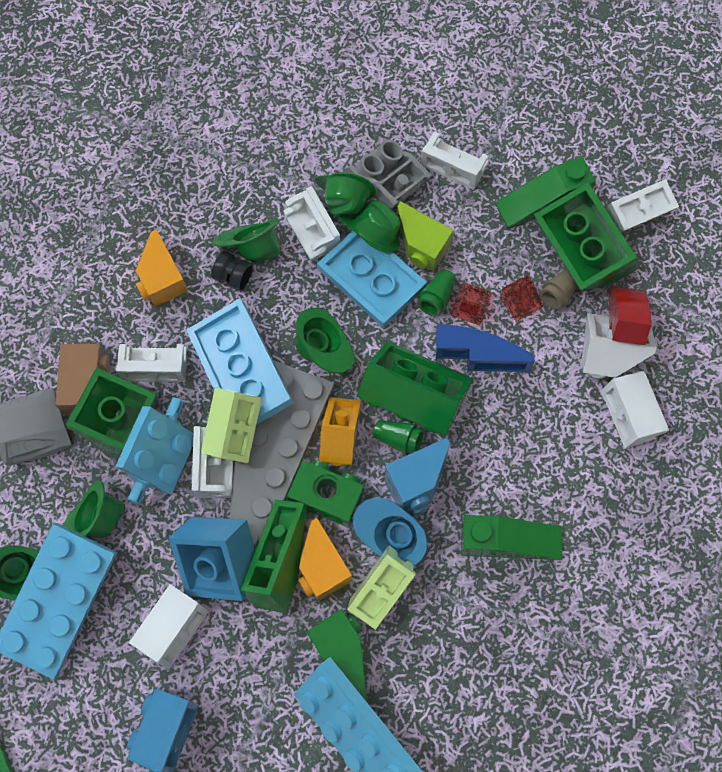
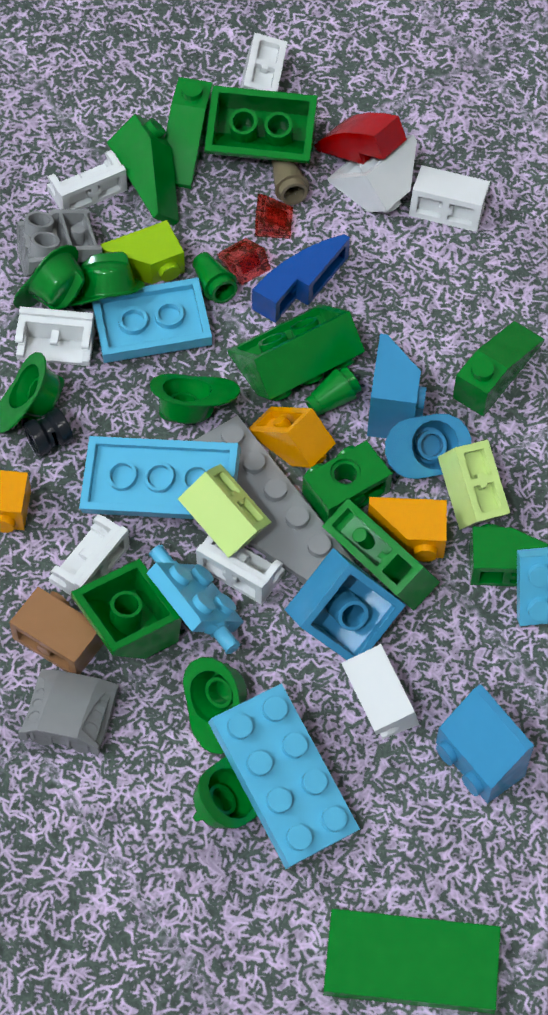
camera: 60 degrees left, 10 degrees down
(494, 189) = (148, 165): none -> green slope

